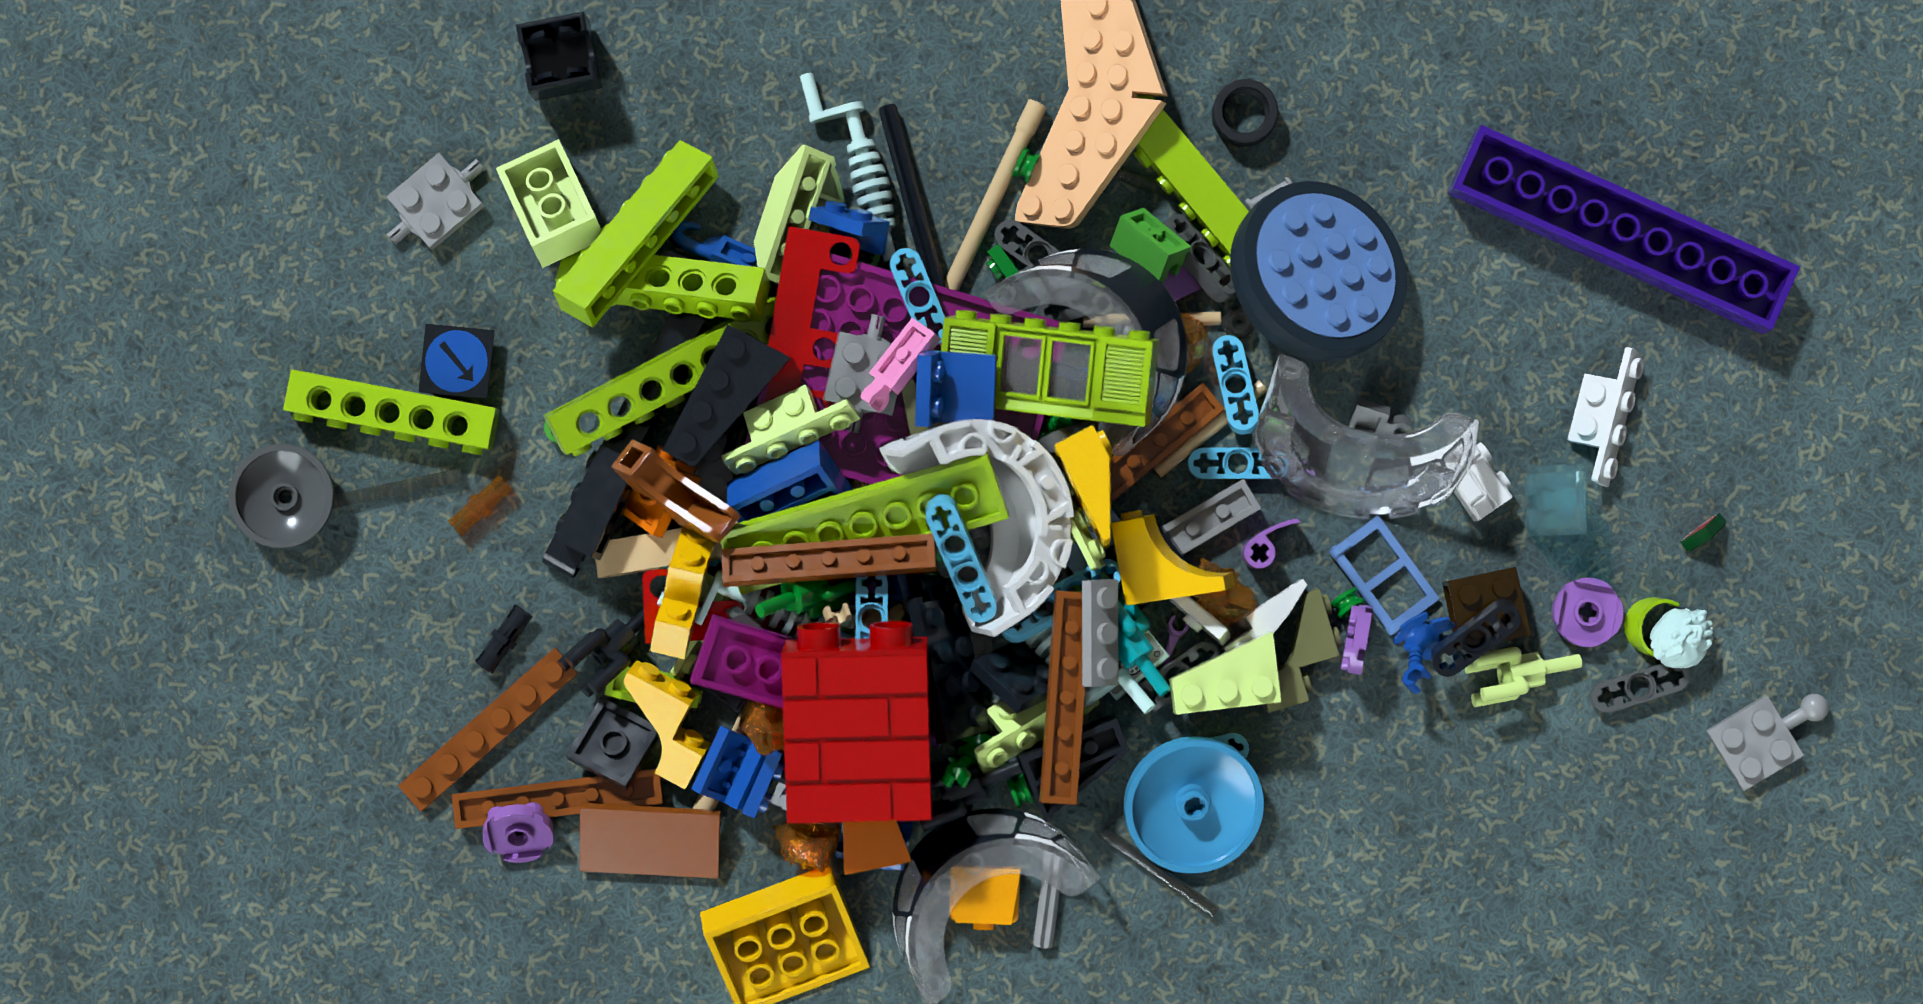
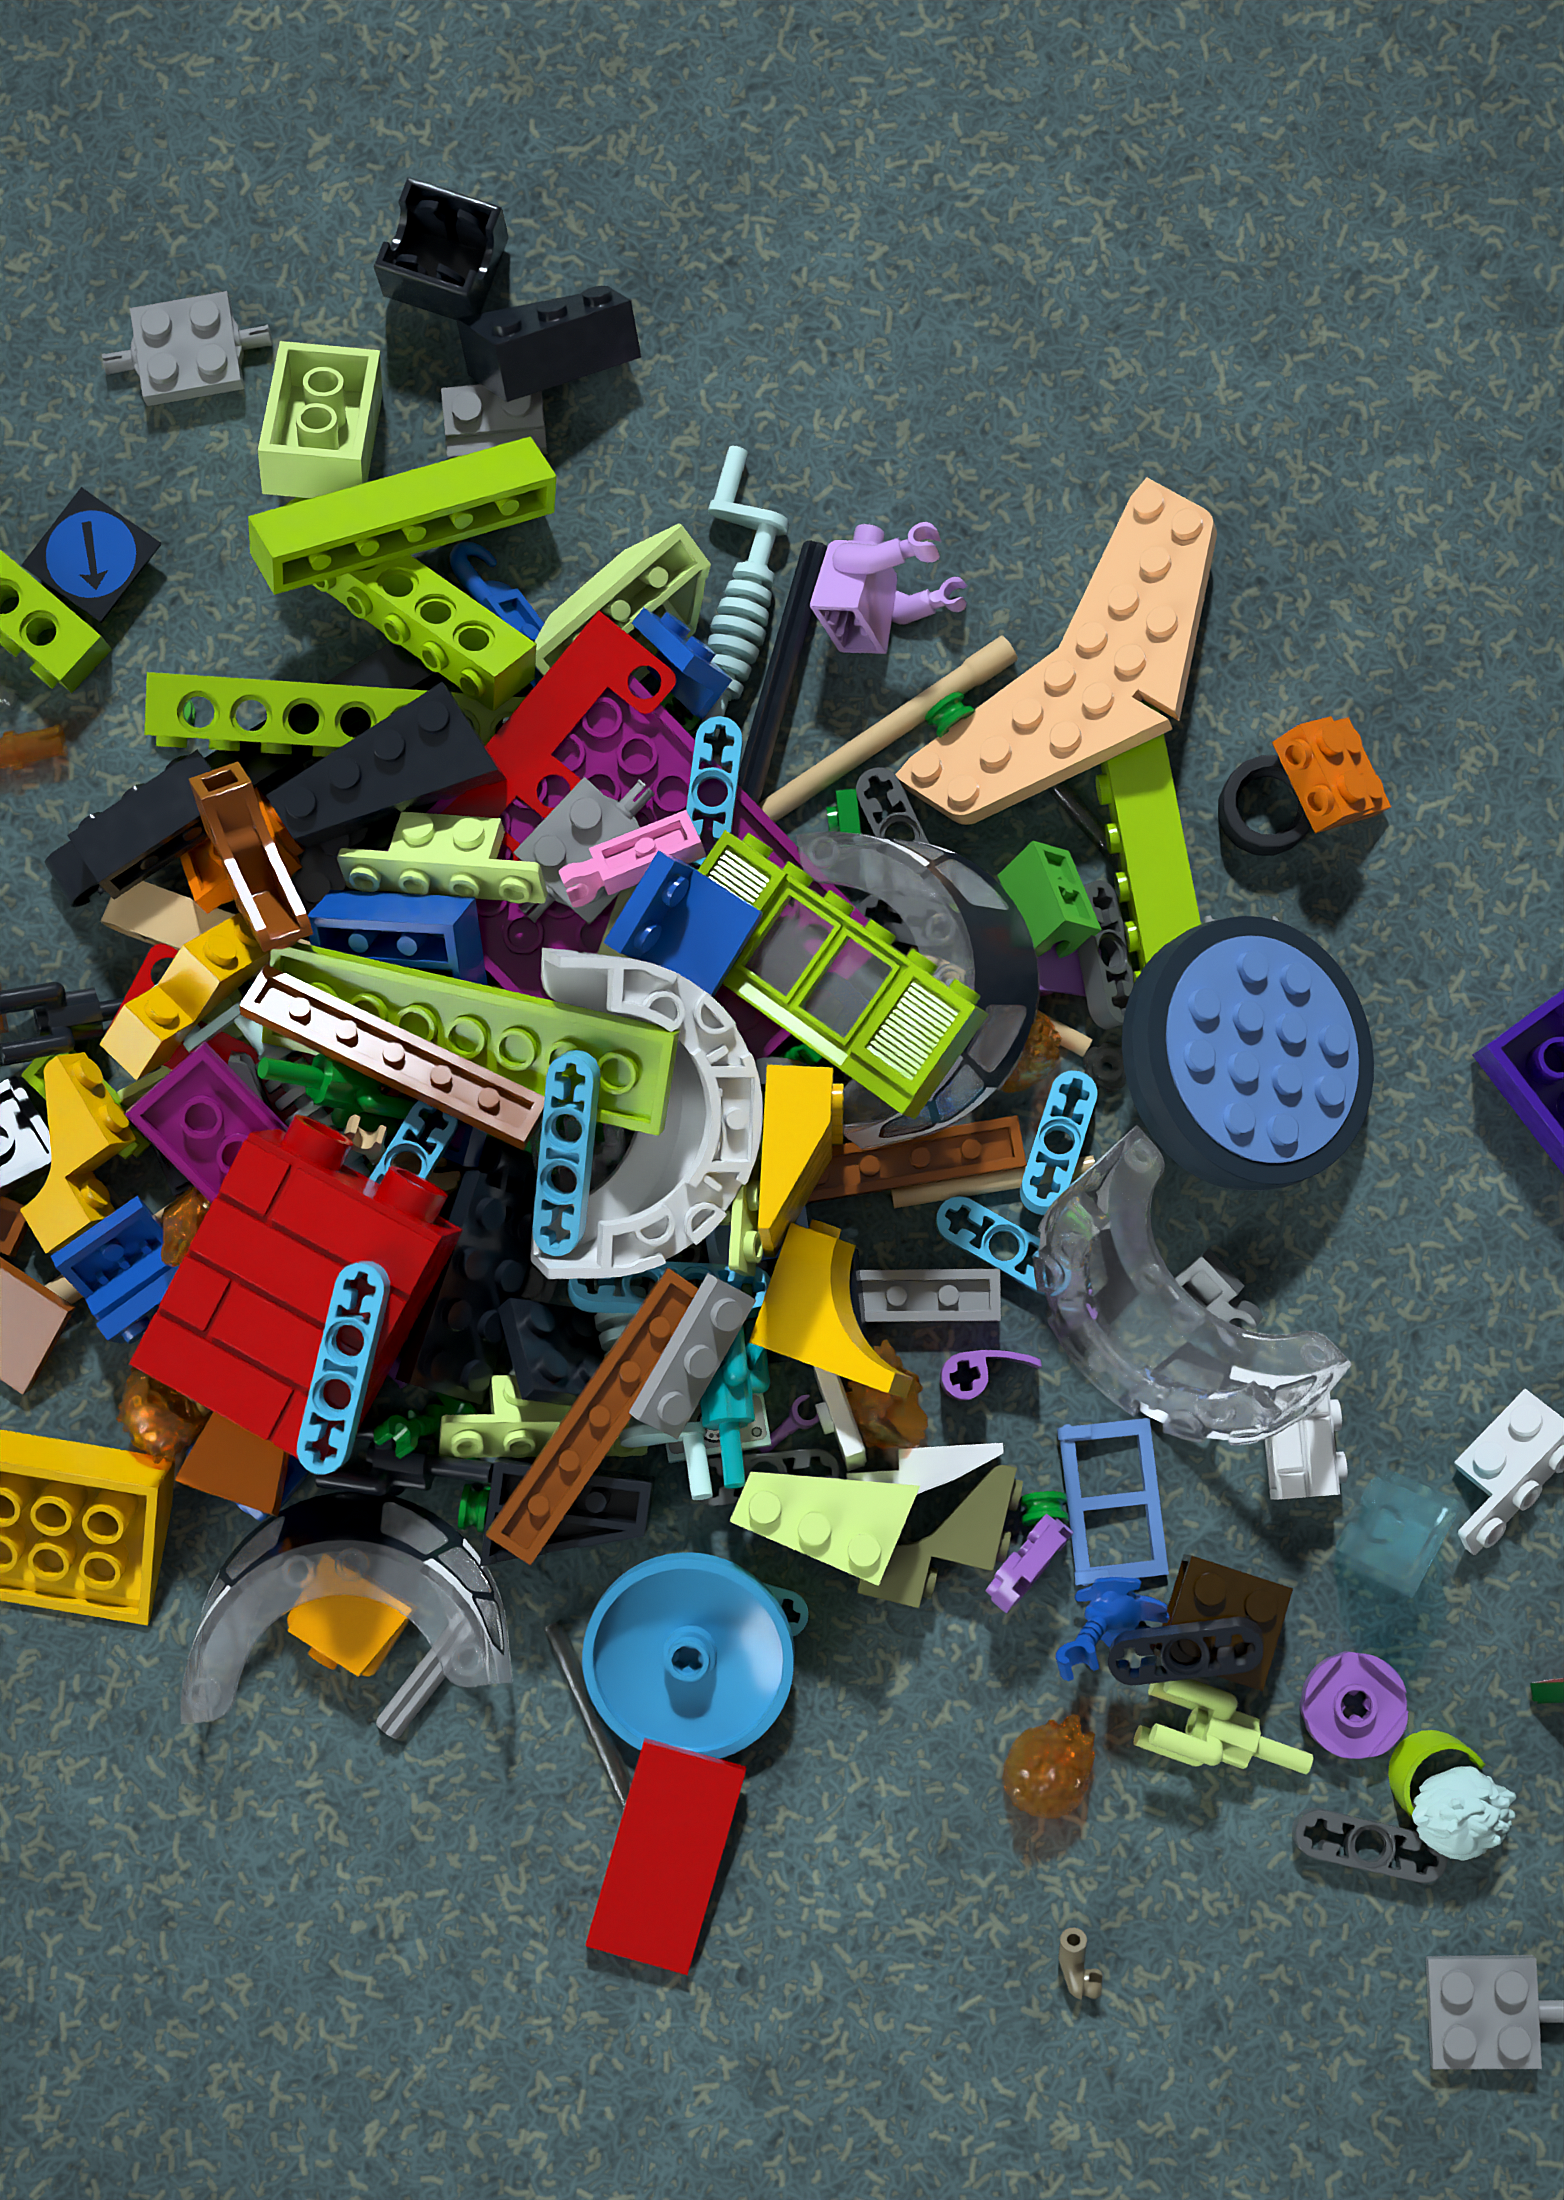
camera: 30 degrees right, 5 degrees down
(647, 139) = (482, 420): none -> light grey plate
(656, 75) = (549, 341): none -> black wedge
(909, 755) = (336, 1365): none -> medium azure beam
(930, 120) = (858, 590): none -> lavender torso
(1244, 923) = (665, 1856): none -> red tile
(1272, 73) = (1331, 773): none -> orange plate
(1434, 748) = (1049, 1768): none -> clear orange hair
(1506, 846) = (1072, 1961): none -> dark tan arm

